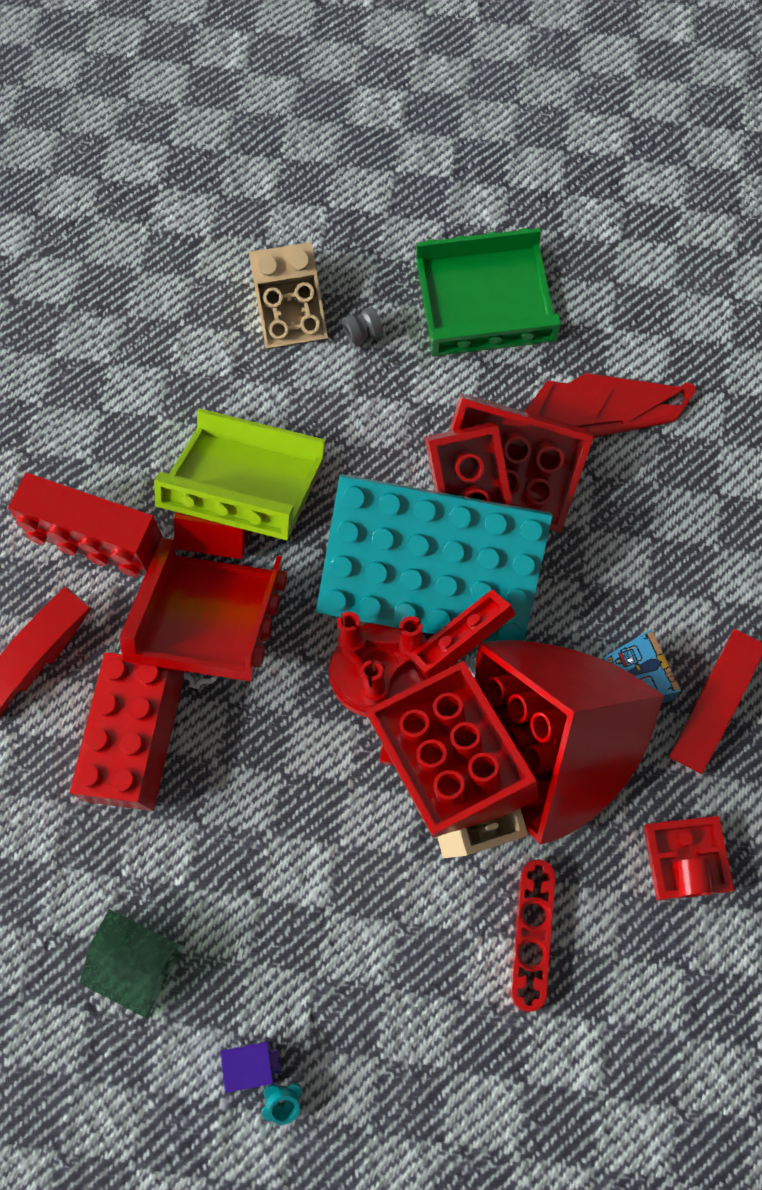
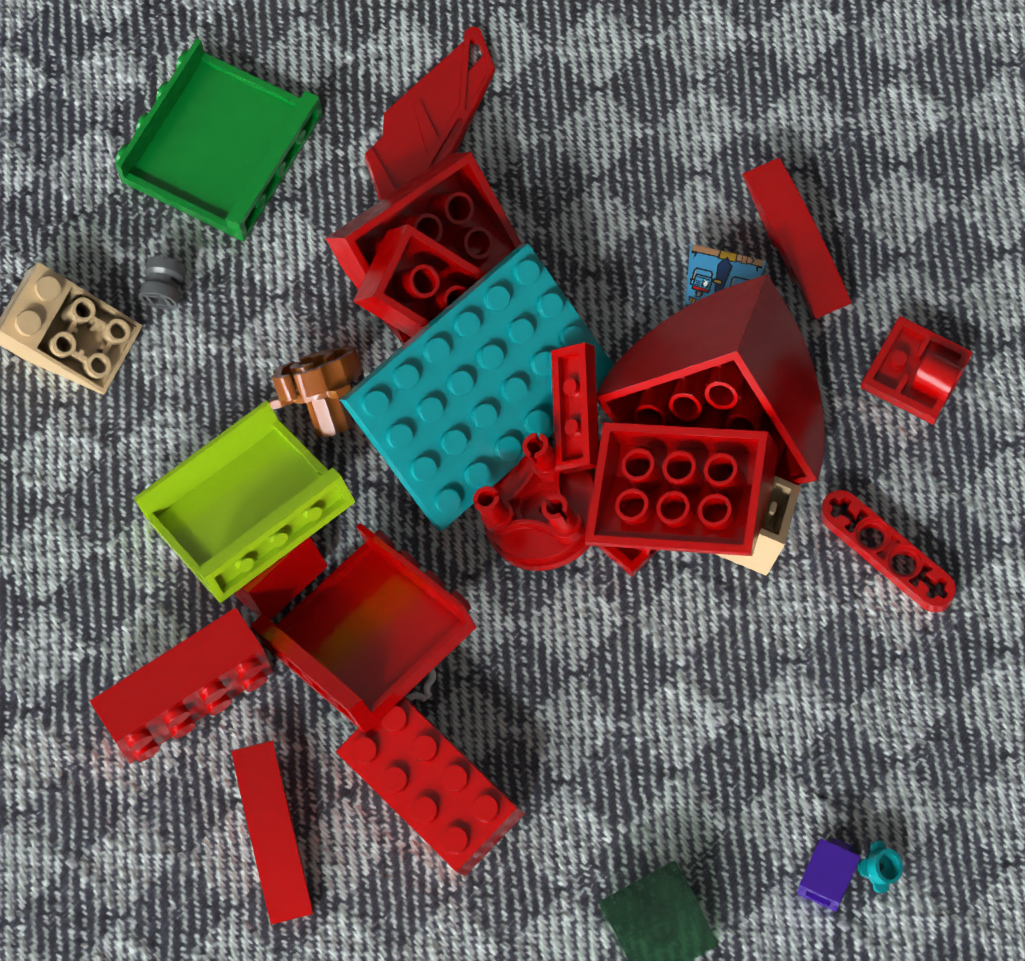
camera: 50 degrees left, 0 degrees up
(348, 451) = (320, 383): none -> dark orange piece

